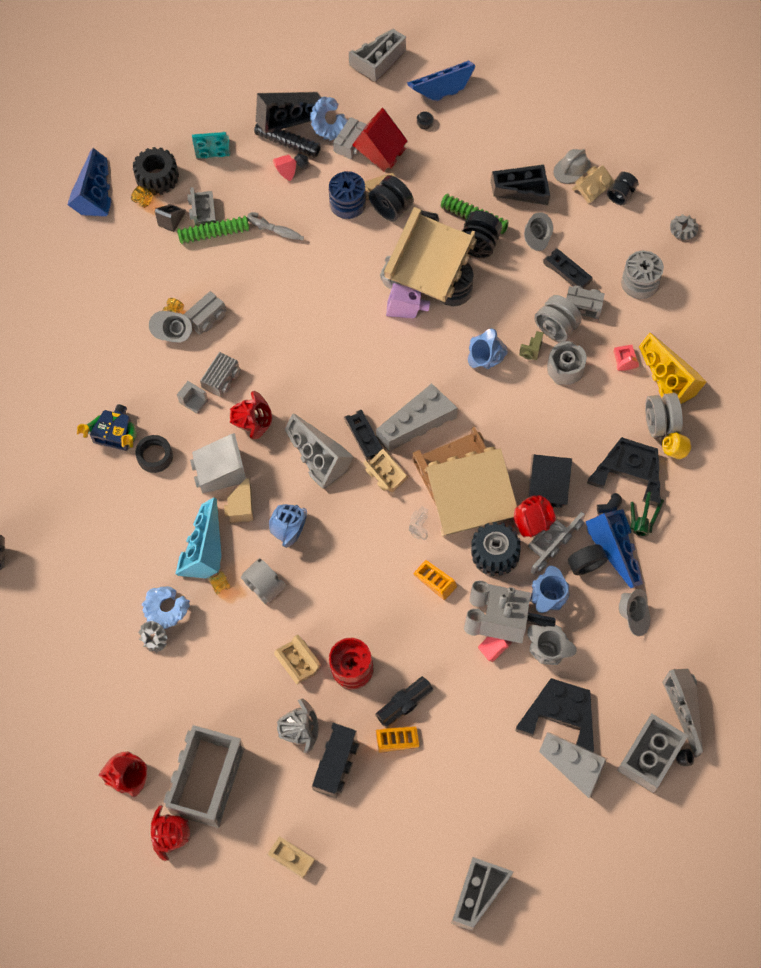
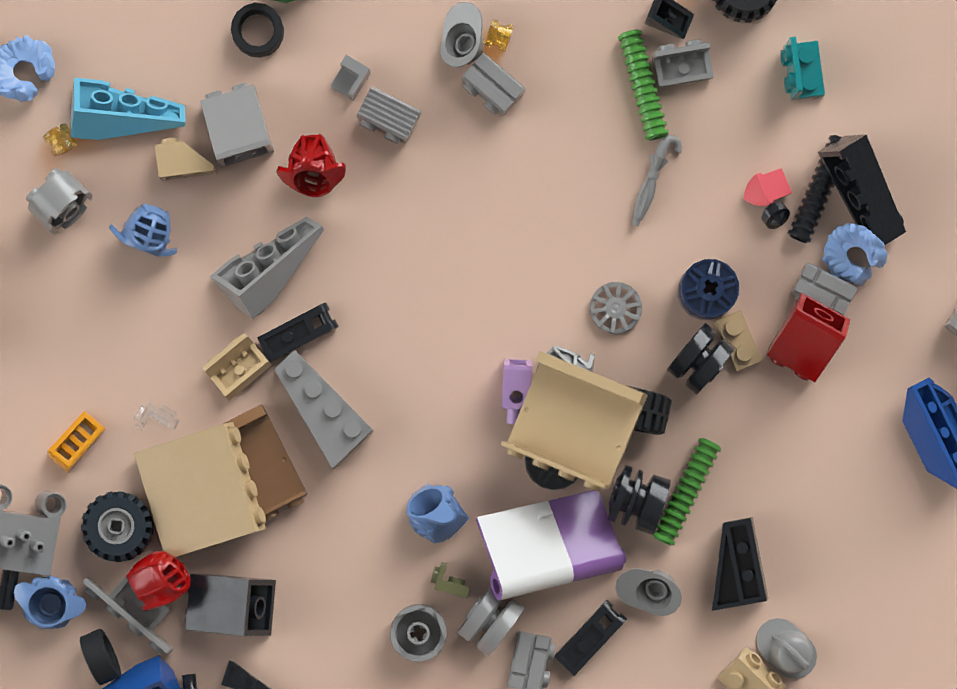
camera: 85 degrees right, 20 degrees up
(355, 250) = (615, 307): none -> light grey wheel
(425, 120) = (868, 409): black tile -> none
(509, 282) = (550, 544): none -> door

